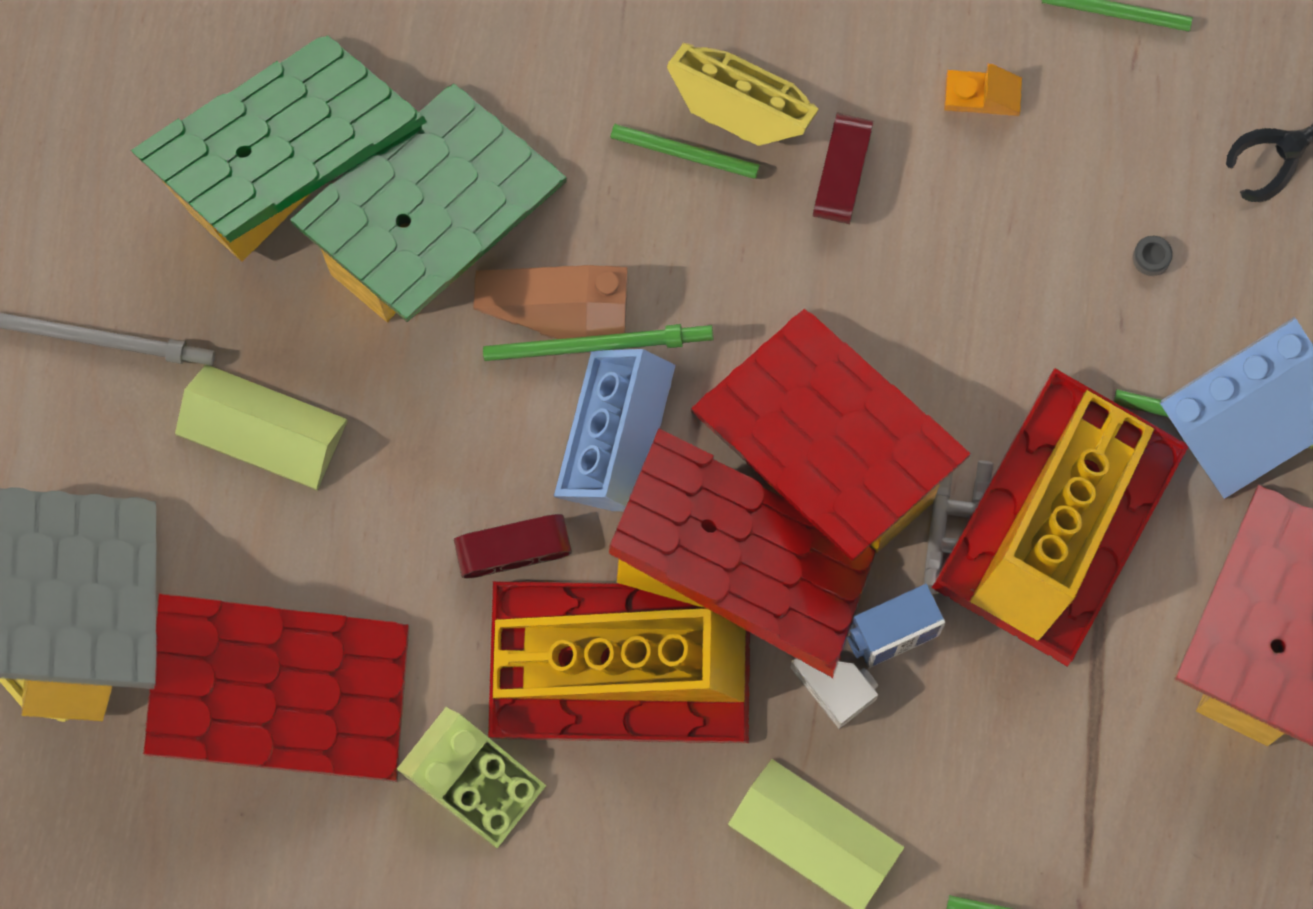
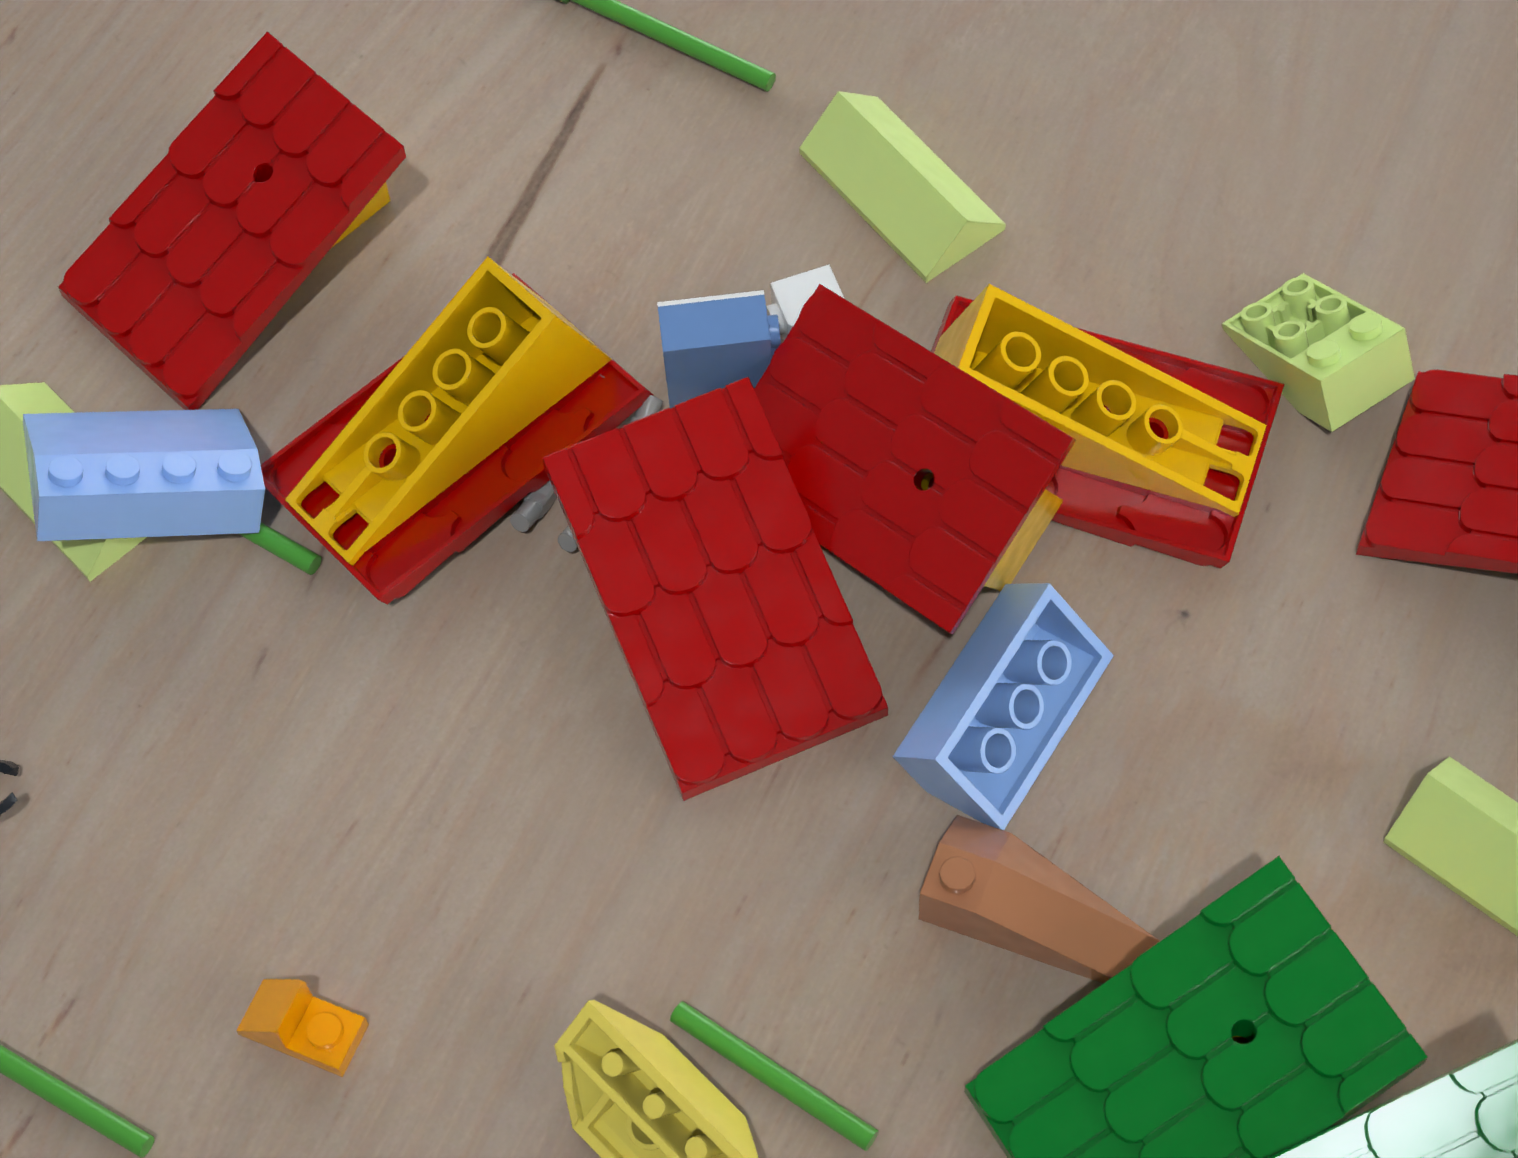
camera: 160 degrees left, 15 degrees down
(512, 546) = (1190, 597): dark red beam -> none
(672, 336) = (883, 793): bright green bar -> none
(843, 168) = (550, 968): dark red beam -> none
(1152, 255) = (177, 727): dark grey tile -> none

